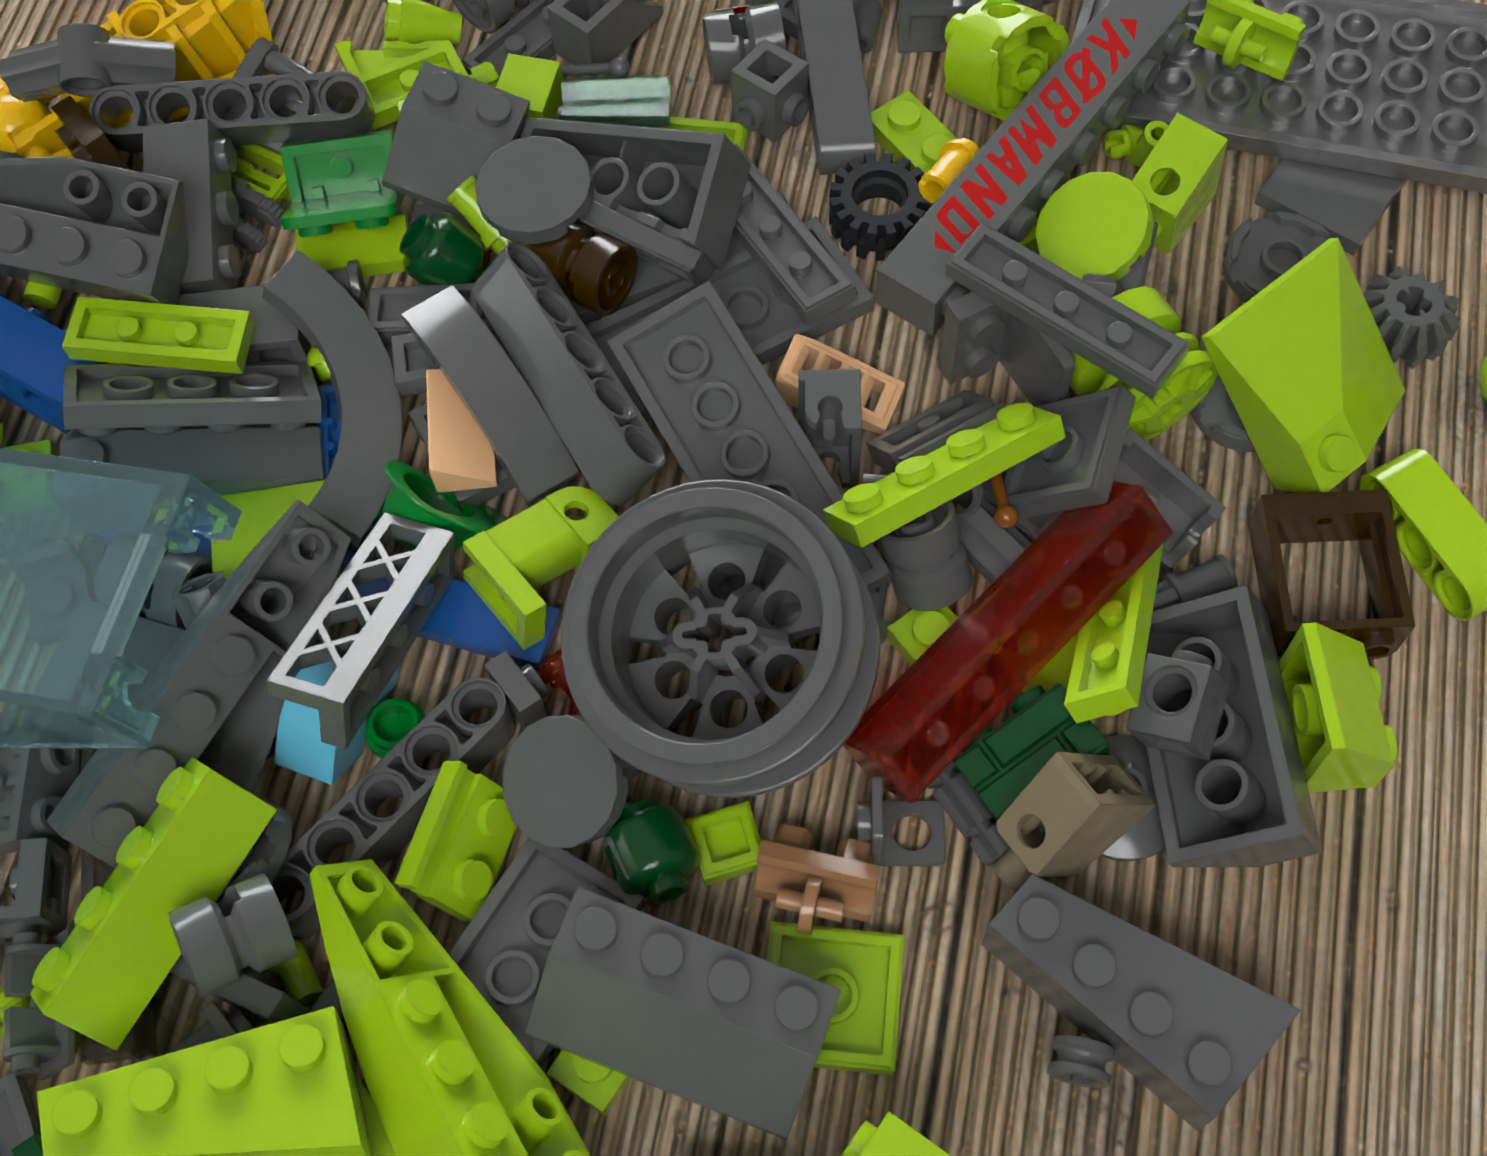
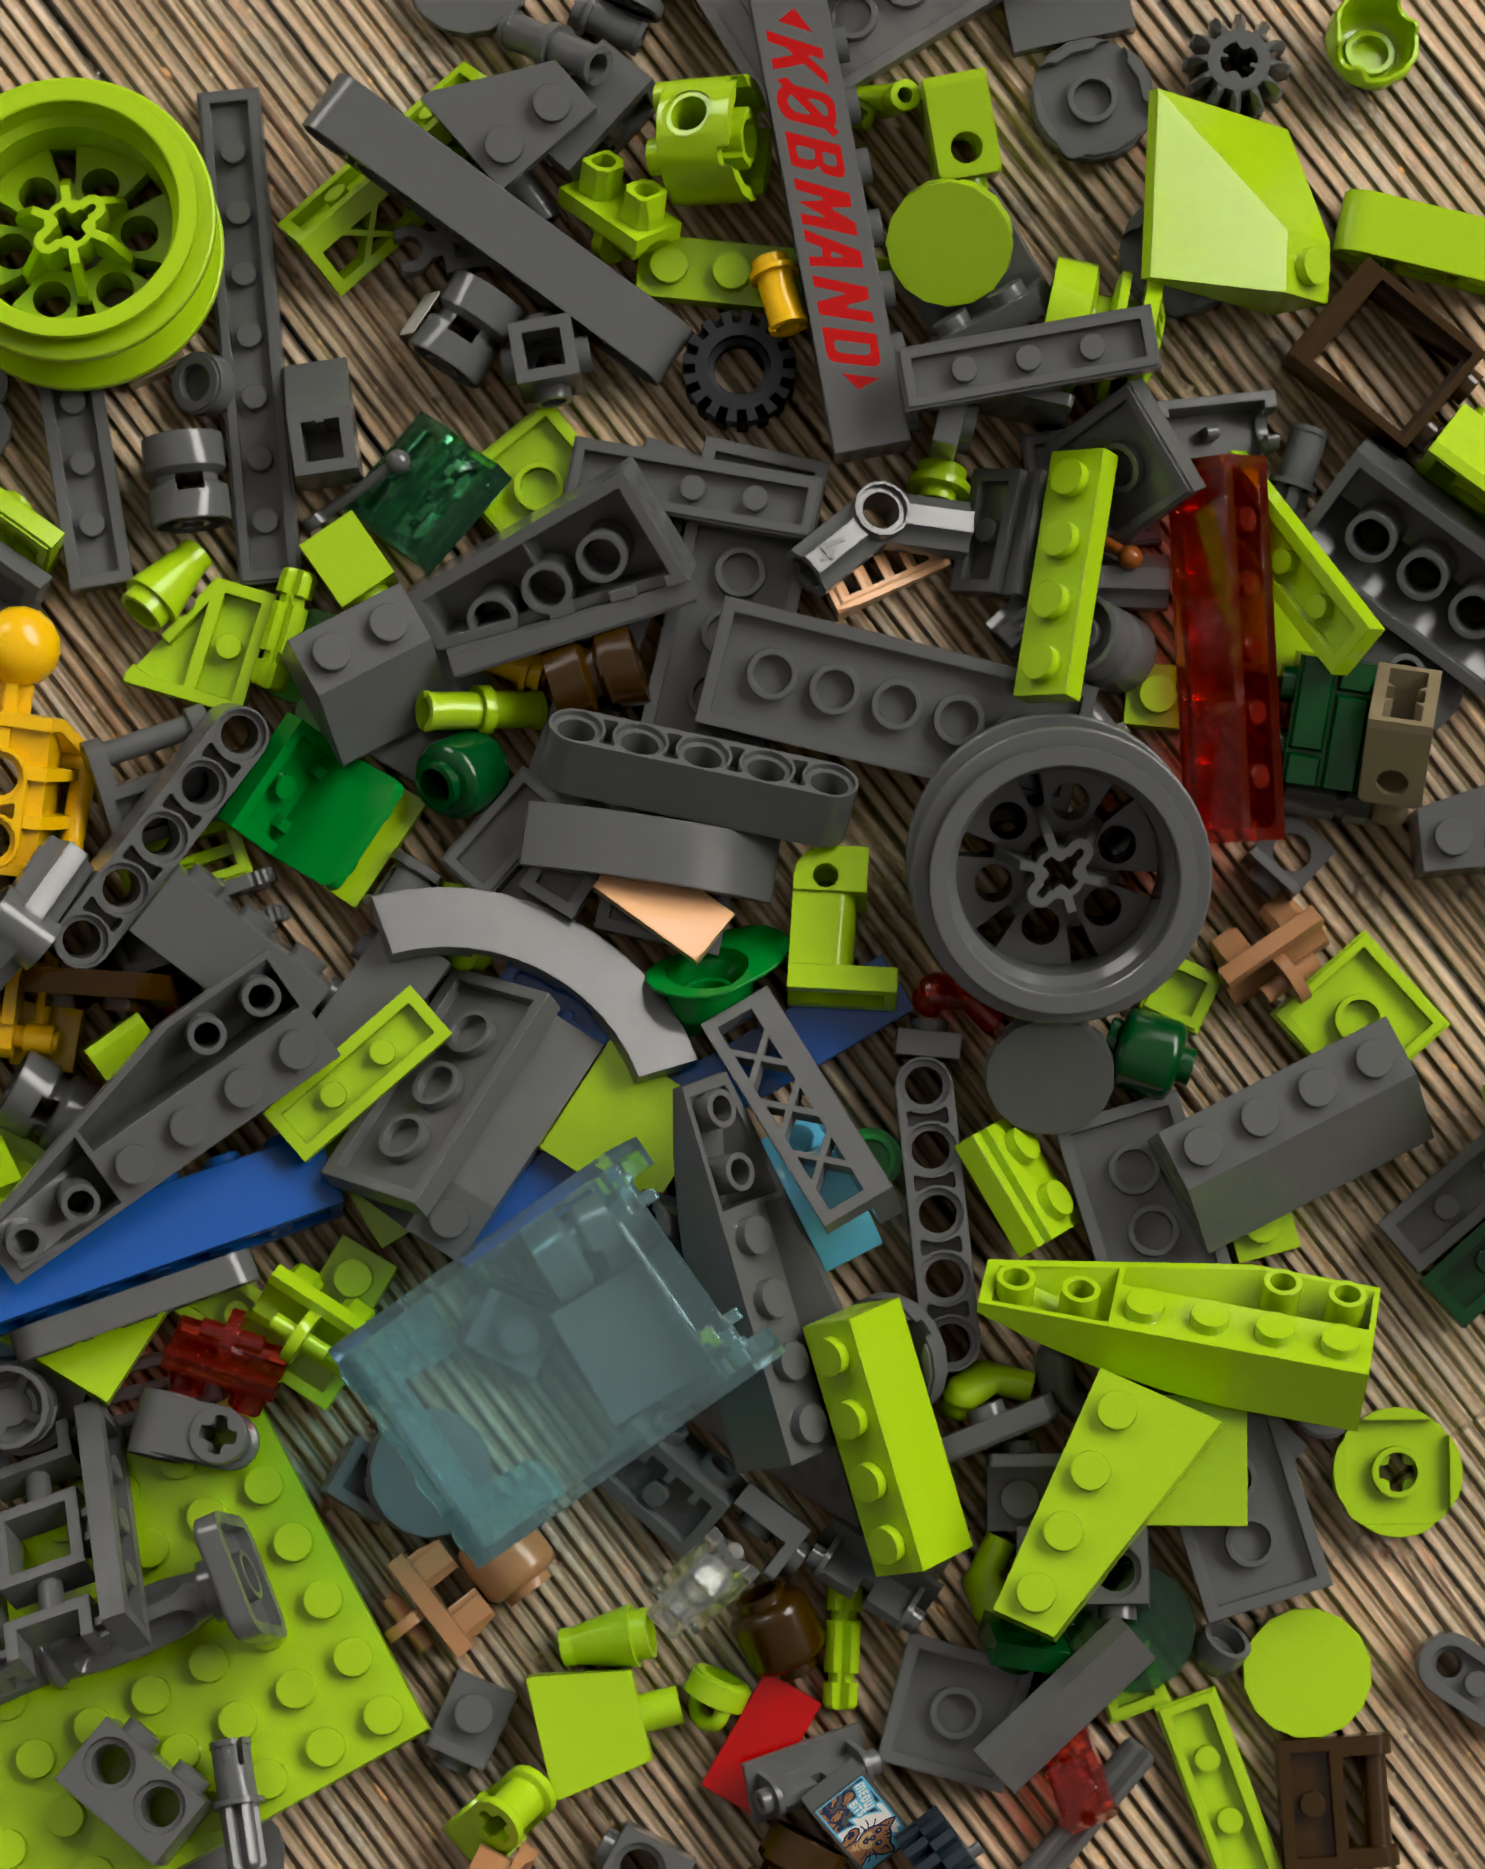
camera: 50 degrees left, 20 degrees up
(232, 934) = (975, 1397): dark grey wheel -> none
(534, 189) = (512, 661): dark grey tile -> none
(830, 335) = (848, 540): none -> dark grey piece
(833, 417) = (929, 606): dark grey hinge -> none
(906, 57) = (619, 214): none -> lime hips
(930, 374) = (940, 480): none -> lime plate
(1191, 728) = (1398, 614): dark grey brick -> none

